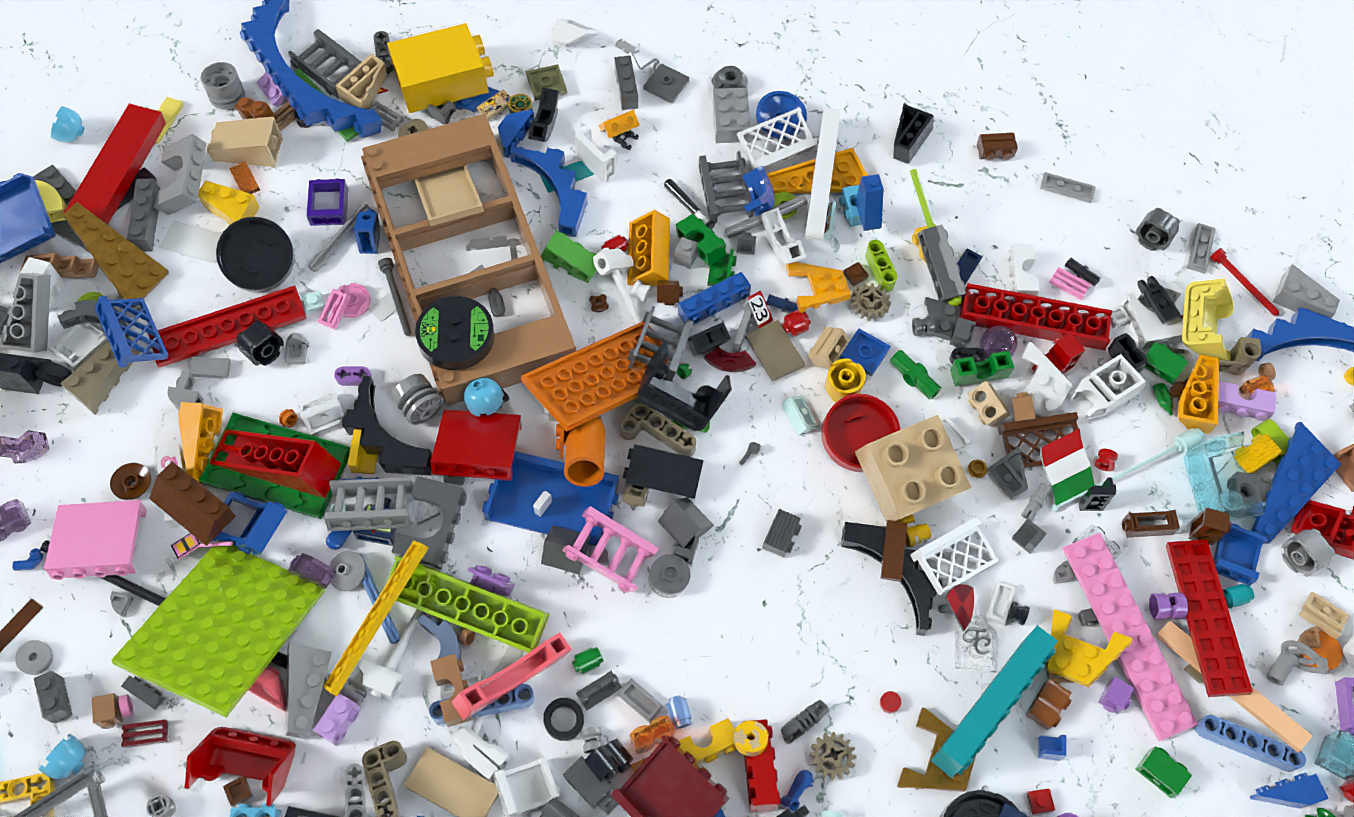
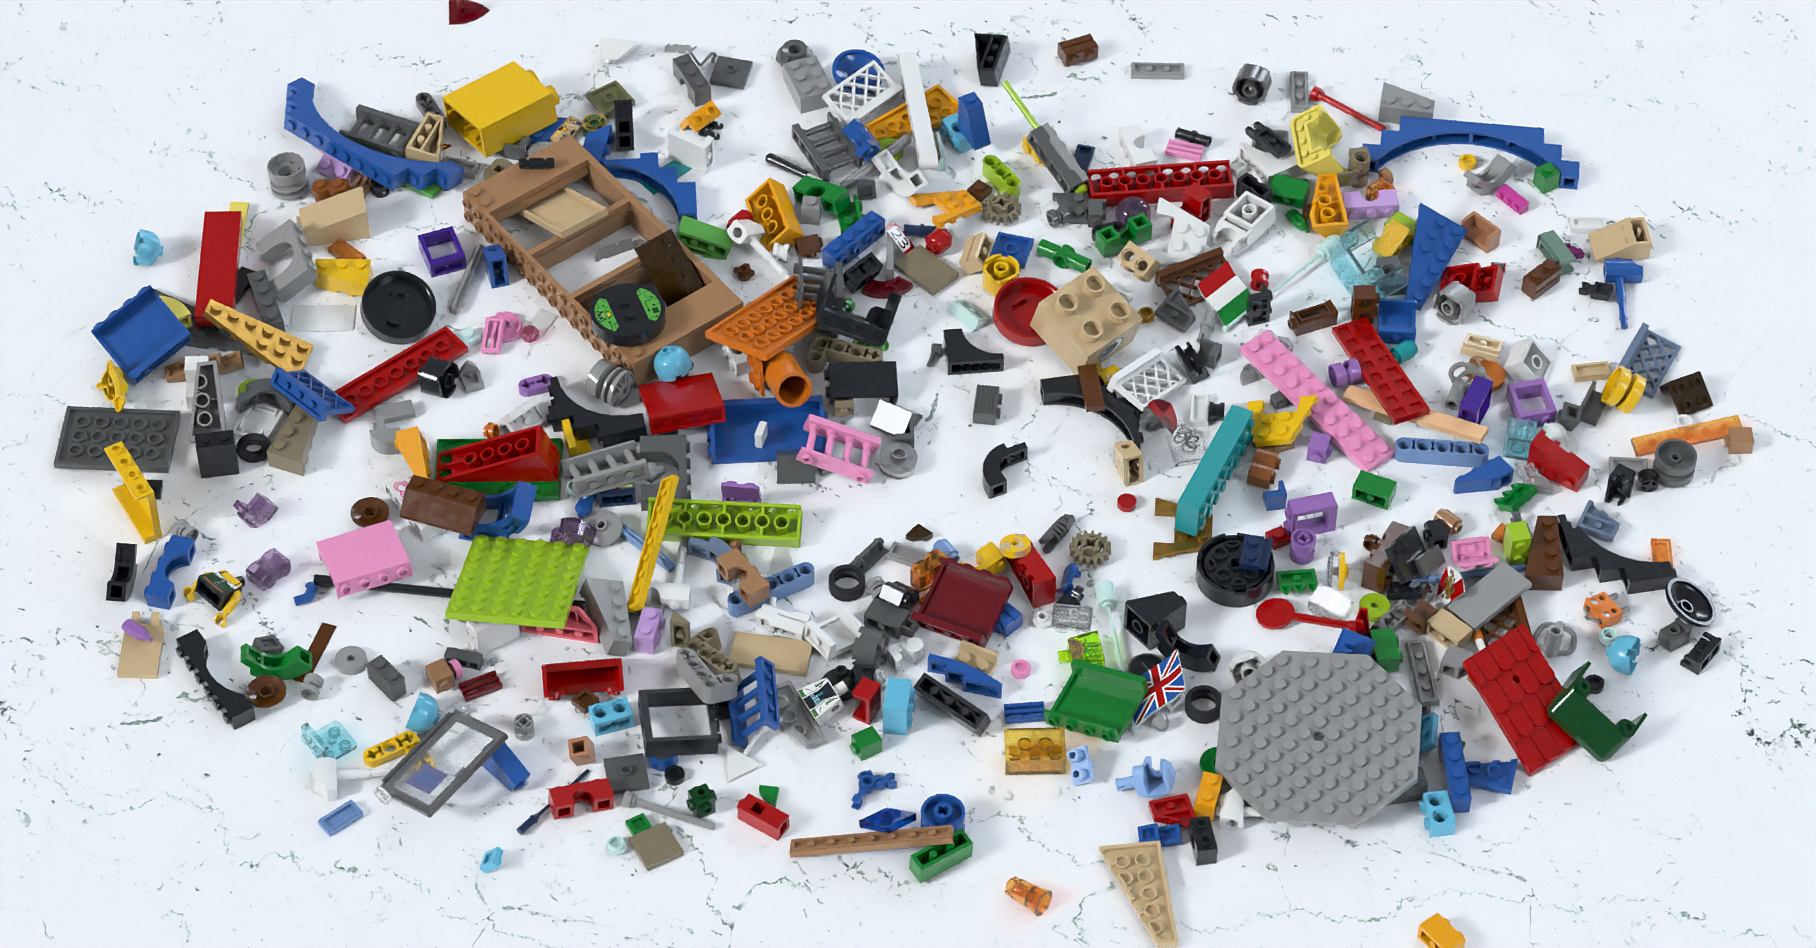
camera: 15 degrees left, 15 degrees down
(120, 602) = (407, 604): light grey tile -> none
(190, 543) = (448, 545): piece -> none
(362, 734) = (679, 630): none -> dark tan slope
(367, 313) = (527, 330): none -> clear pink plate
(386, 266) = (526, 291): dark grey piece -> none
(439, 136) = (536, 163): none -> black axle
(494, 687) = (773, 565): coral arch -> none
(520, 287) = (668, 267): none -> dark brown slope
(587, 660) = (850, 537): green brick -> none
(660, 675) = (919, 533): none -> dark brown tile
(775, 604) = (995, 462): none -> black arch
(778, 468) = (967, 359): none -> black arch
(906, 653) = (1128, 457): none -> tan torso
(1009, 544) = (1191, 363): none -> black hinge
(1024, 406) = (1171, 253): medium nougat brick -> none
(1085, 792) = (1310, 505): none -> medium lavender window
(1304, 694) = (1476, 401): none -> dark purple window
(1340, 803) = (1527, 472): none -> clear tile

